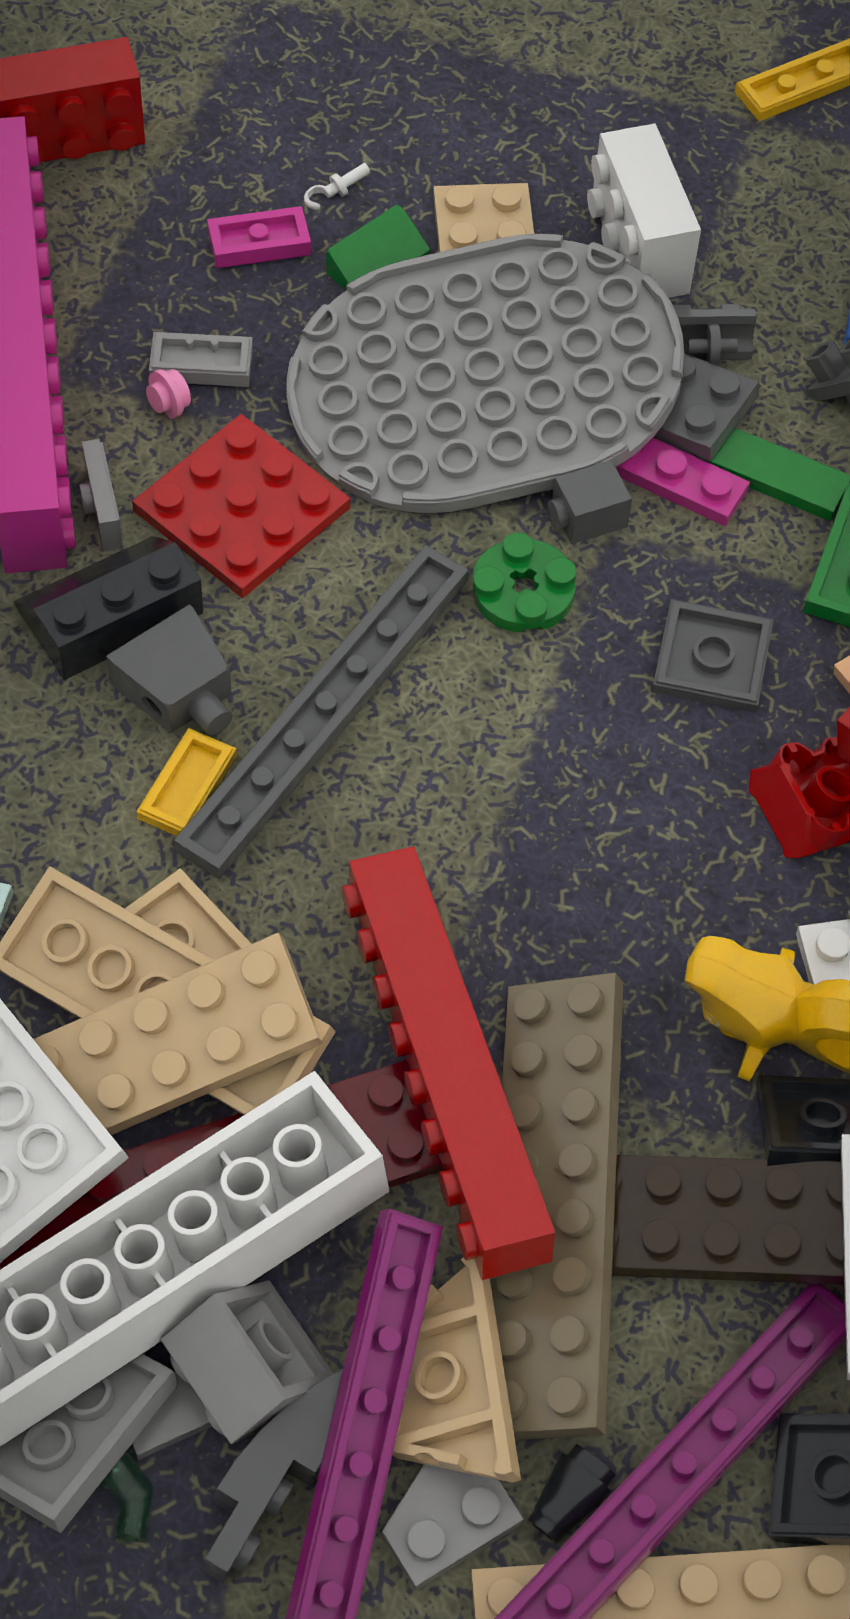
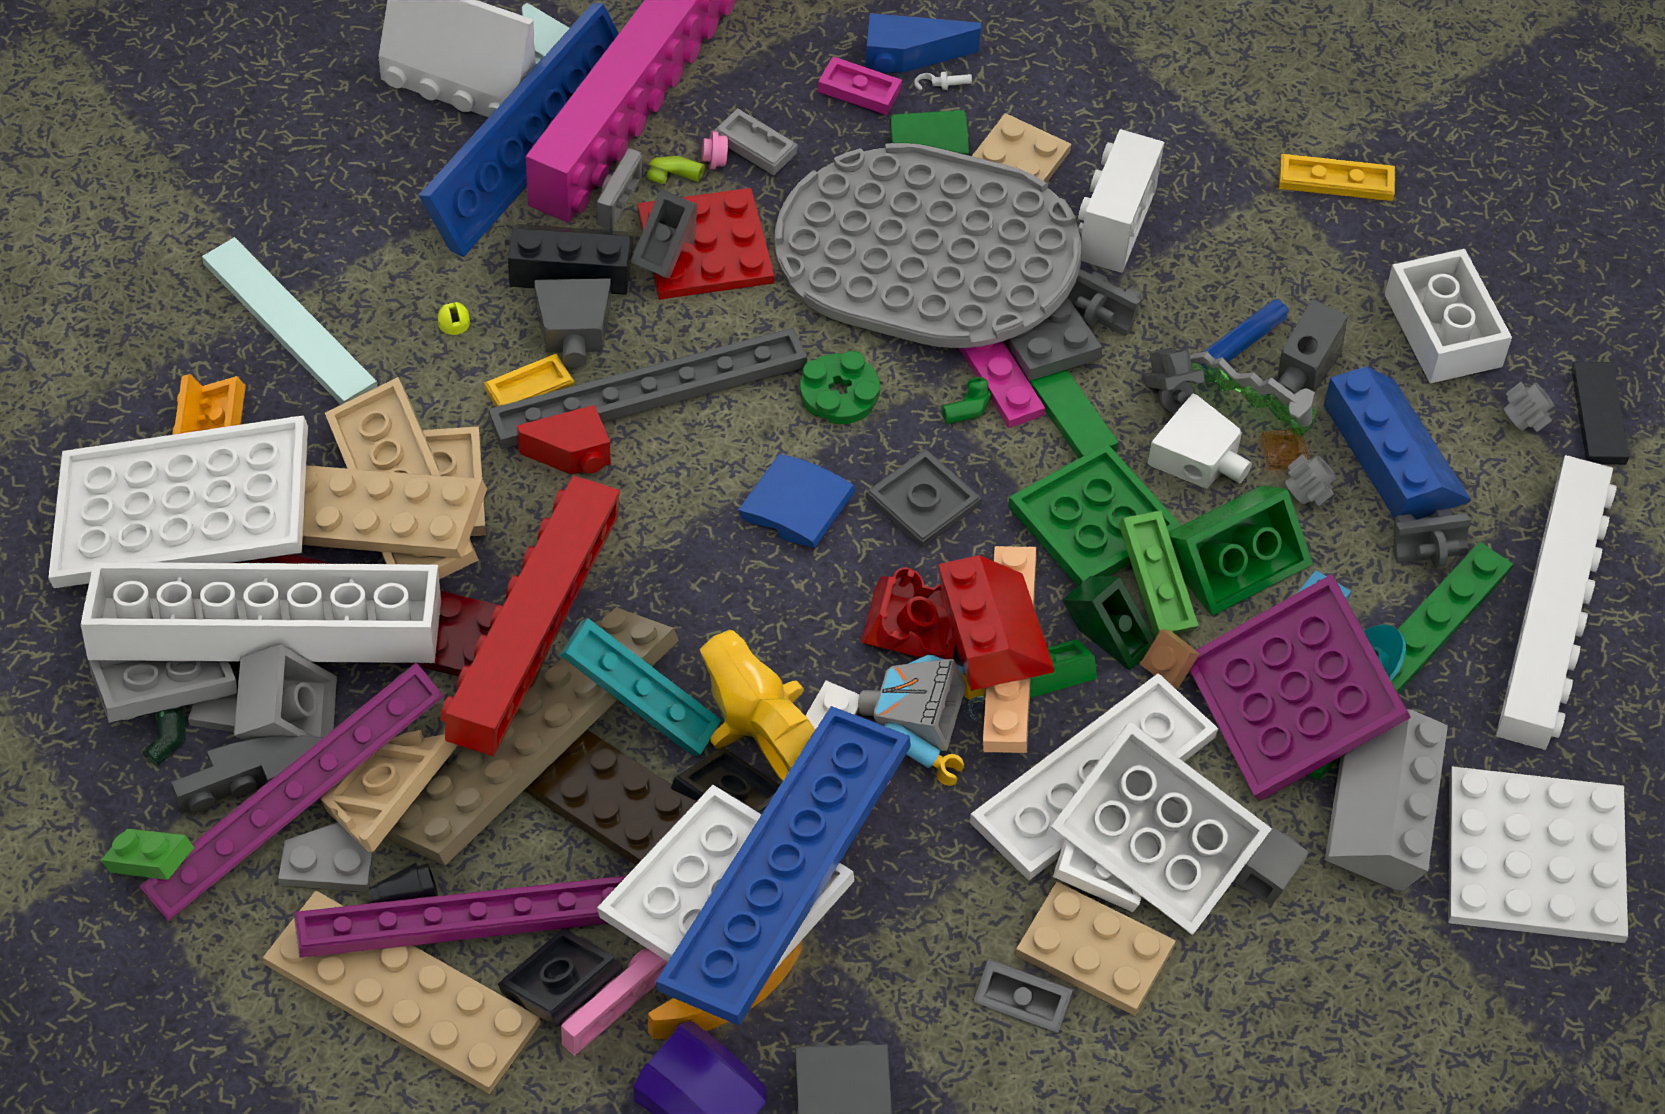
camera: 35 degrees right, 5 degrees down
(29, 761) = (445, 320): none -> neon yellow hinge
(135, 434) = (674, 165): none -> lime arm
(215, 516) = (666, 231): none -> dark grey slope
(272, 162) = (917, 42): none -> blue slope
(295, 823) = (567, 441): none -> red slope
(590, 502) = (923, 361): dark grey brick -> none
(591, 739) = (797, 500): none -> blue slope
(640, 1067) = (640, 687): none -> teal plate
(671, 519) = (972, 405): none -> green arm

